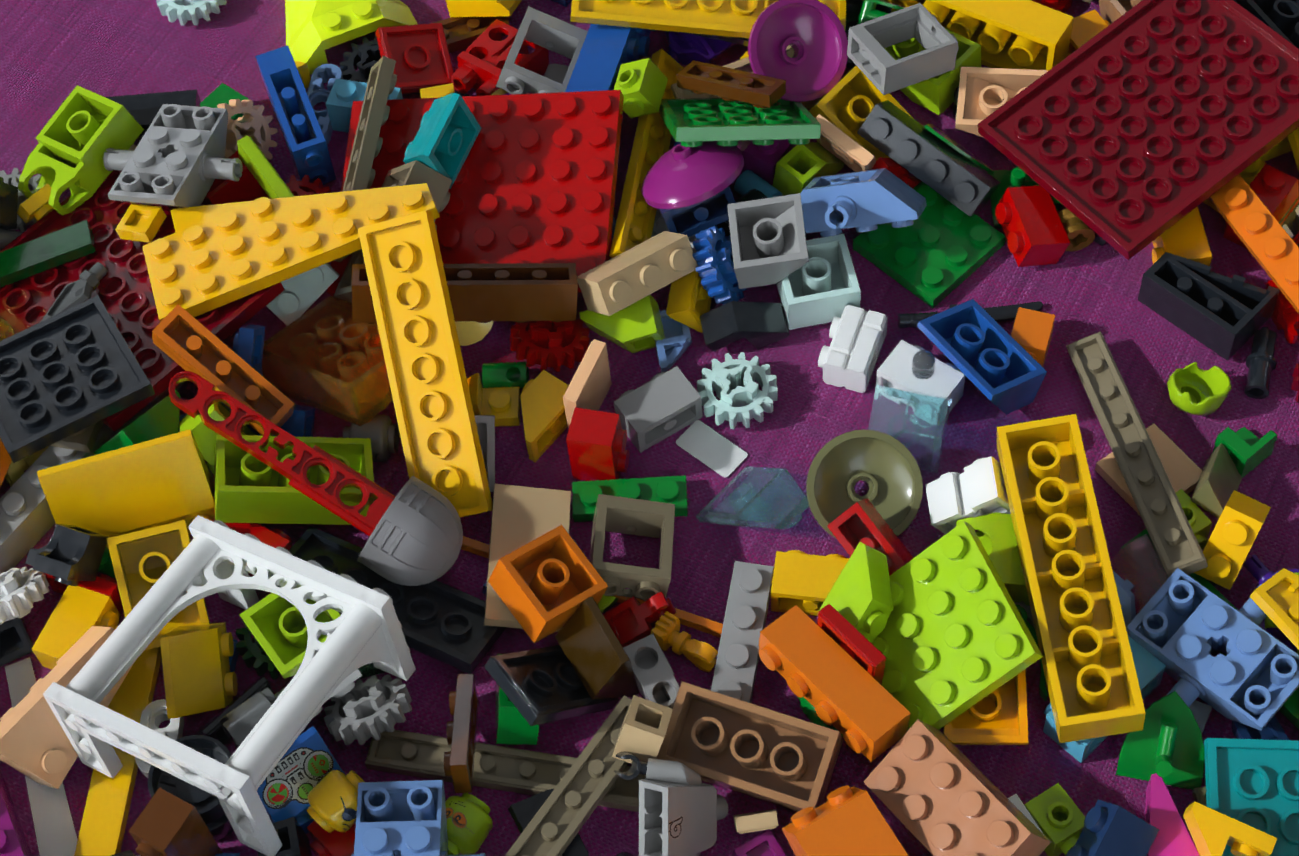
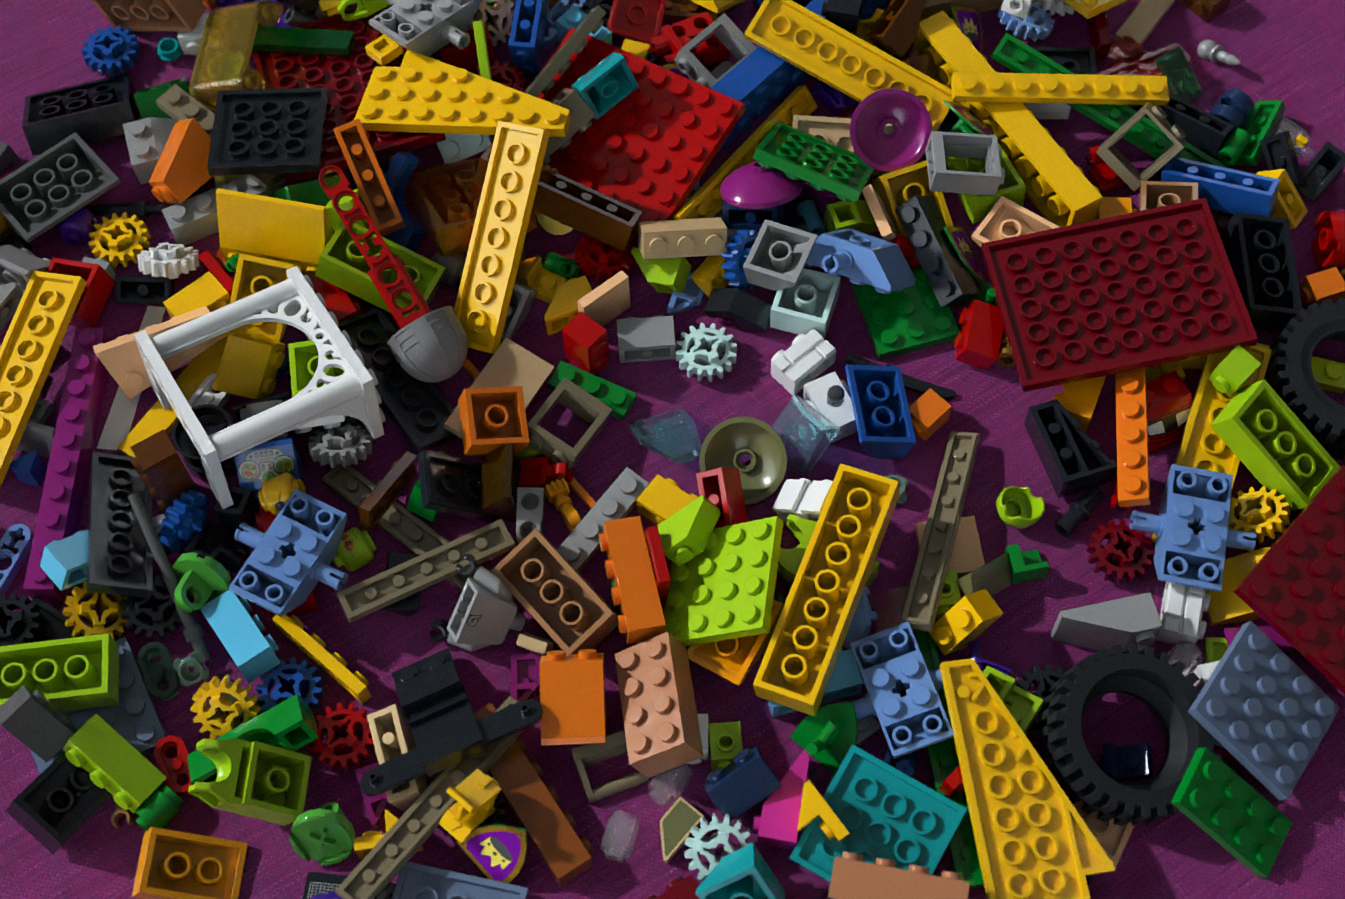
camera: 25 degrees right, 5 degrees up
(70, 555) = (214, 253): black brick -> none
(77, 291) = (319, 78): dark grey piece -> none
(641, 86) = (766, 107): lime brick -> none
(643, 729) = (491, 546): tan brick -> none
(711, 448) = (667, 383): white sticker -> none
(731, 84) = (829, 133): reddish brown plate -> none

